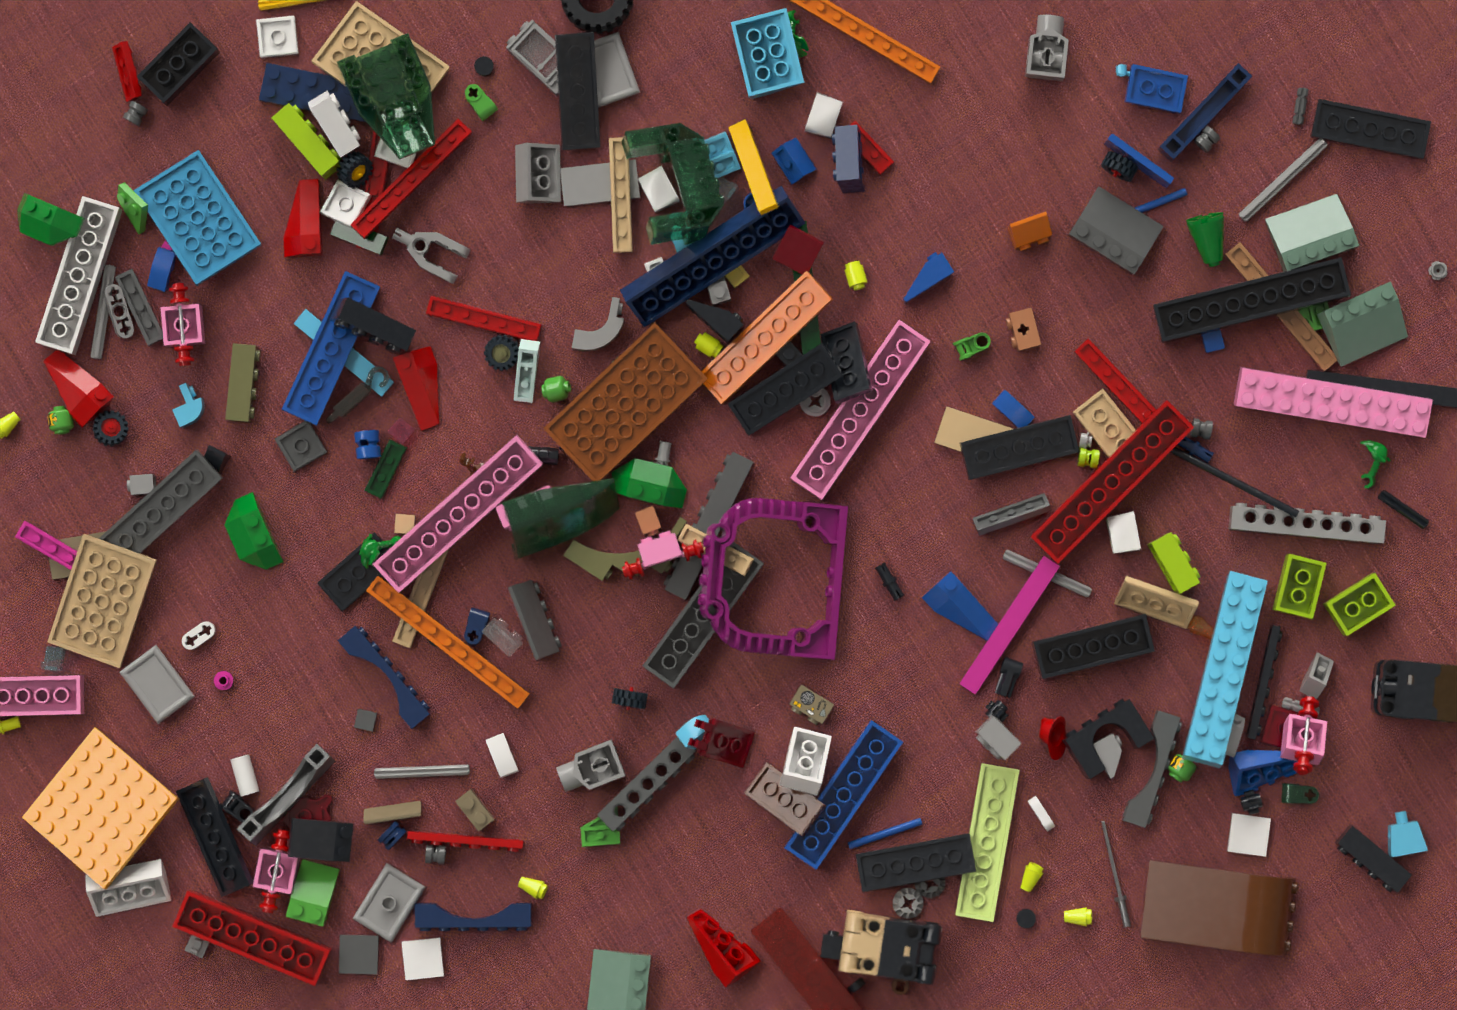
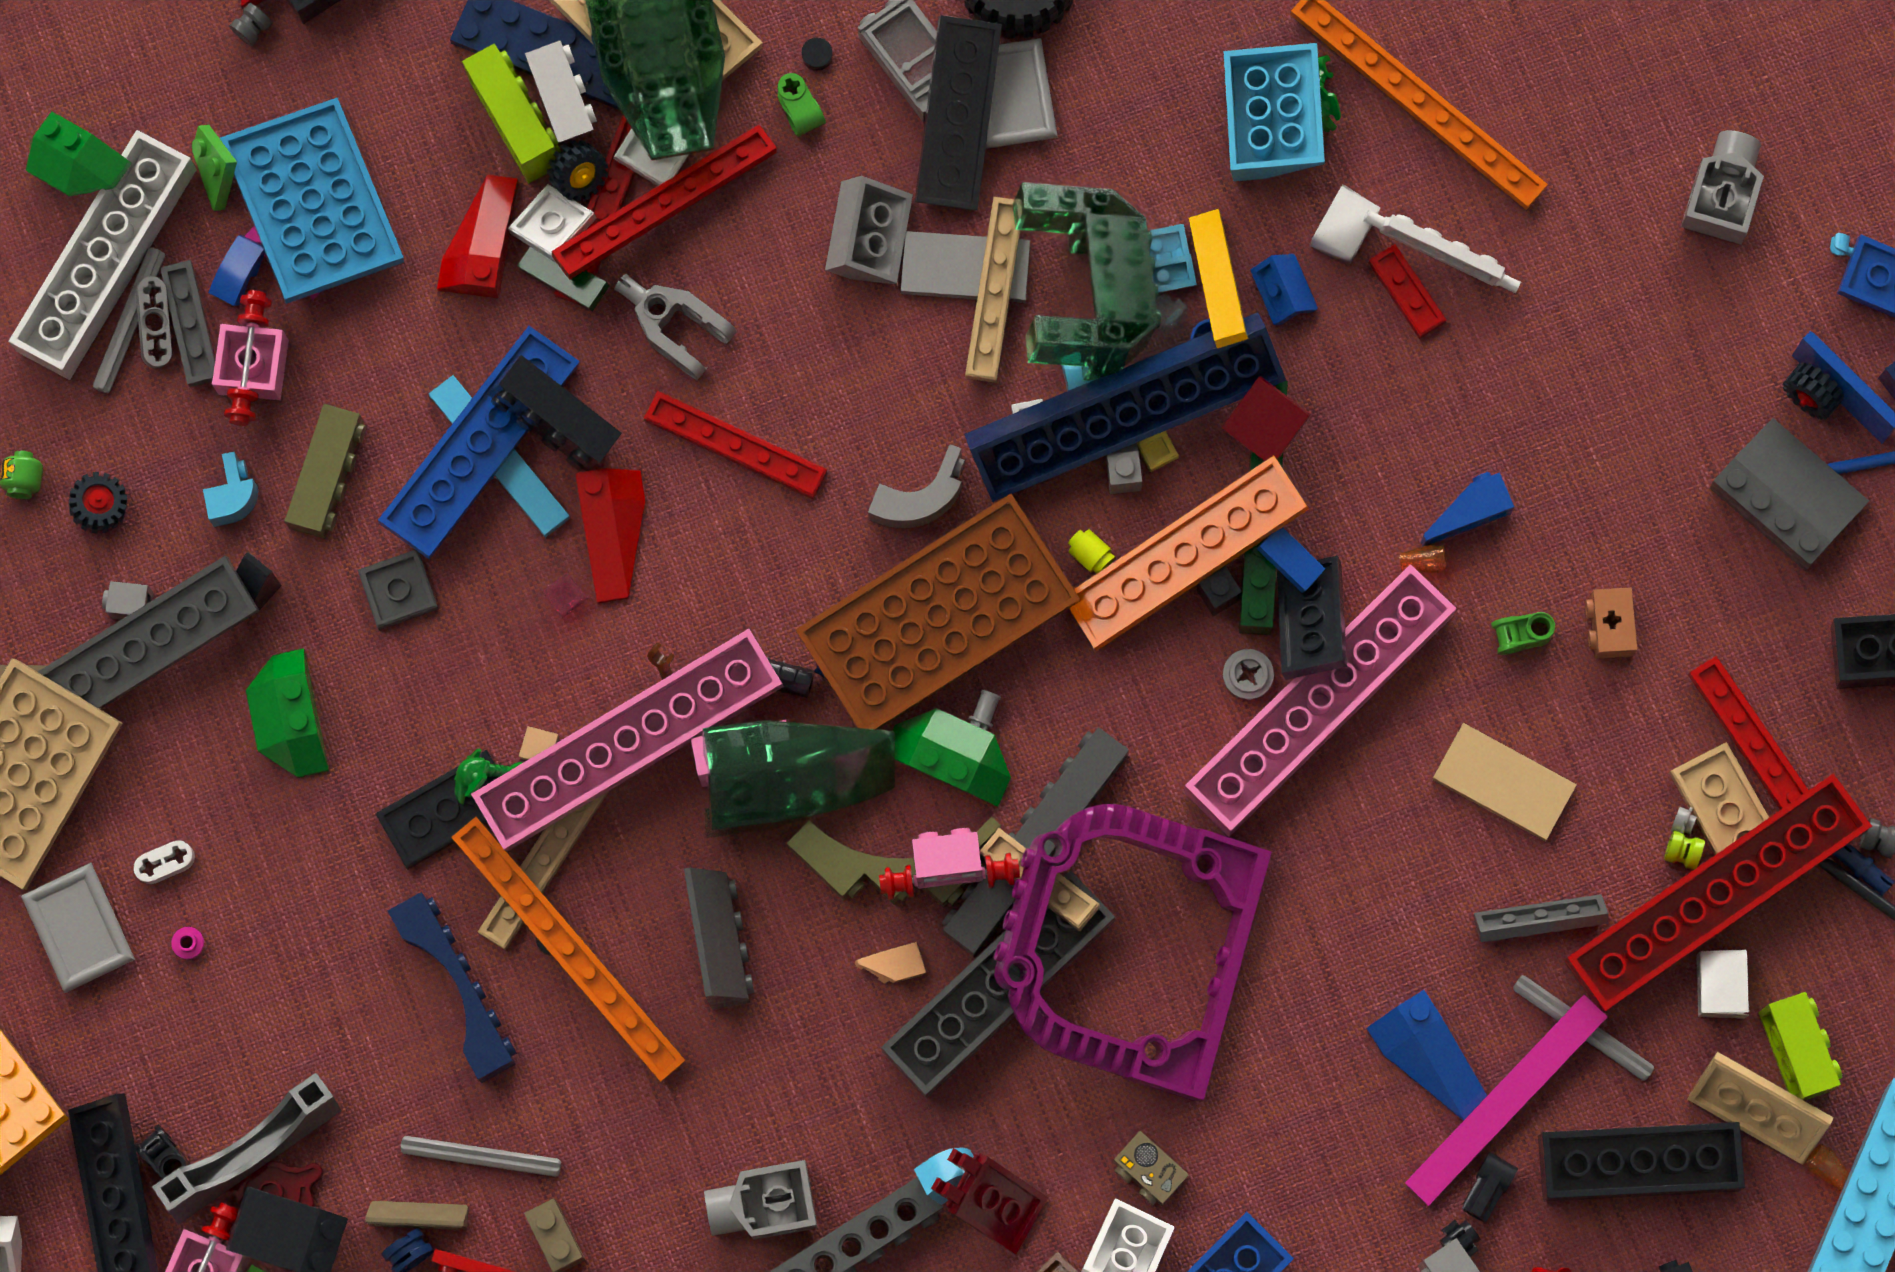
camera: 15 degrees right, 10 degrees down
(80, 391) = (61, 432): red wedge -> none
(244, 775) = (187, 1105): white brick -> none
(357, 395) = (504, 525): clear smoke piece -> none
(365, 720) = (406, 1052): dark grey tile -> none
(367, 451) = (505, 606): blue wheel -> none
(385, 469) = (526, 652): dark green tile -> none
(476, 622) = (622, 928): dark blue piece -> none
(501, 352) = (753, 500): black wheel -> none
(502, 755) = (618, 1155): white slope -> none
(503, 637) = (659, 958): clear bracket -> none
(526, 370) = (787, 537): light aqua slope -> none
(556, 389) = (829, 575): bright green head -> none
(629, 698) = (849, 1099): black wheel -> none
(640, 613) = (894, 964): none -> light nougat slope
(648, 521) = (938, 810): nougat brick -> none
(658, 189) = (1058, 288): white piece -> none
(720, 321) = (1113, 510): black slope -> none
(785, 389) = (1204, 641): black plate -> none
(828, 330) = (1291, 559): none -> blue tile
(848, 158) = (1373, 299): wedge -> none
(855, 275) = (1351, 486): neon yellow brick -> none
(889, 581) = (1318, 990): black pin -> none
(892, 121) = (1451, 253): none -> white plate
(906, 312) = (1425, 559): none -> clear orange cone
(1013, 409) = (1572, 749): blue slope -> none
(1019, 447) = (1572, 810): black plate -> none
(1030, 231) = (1649, 465): orange slope -> none

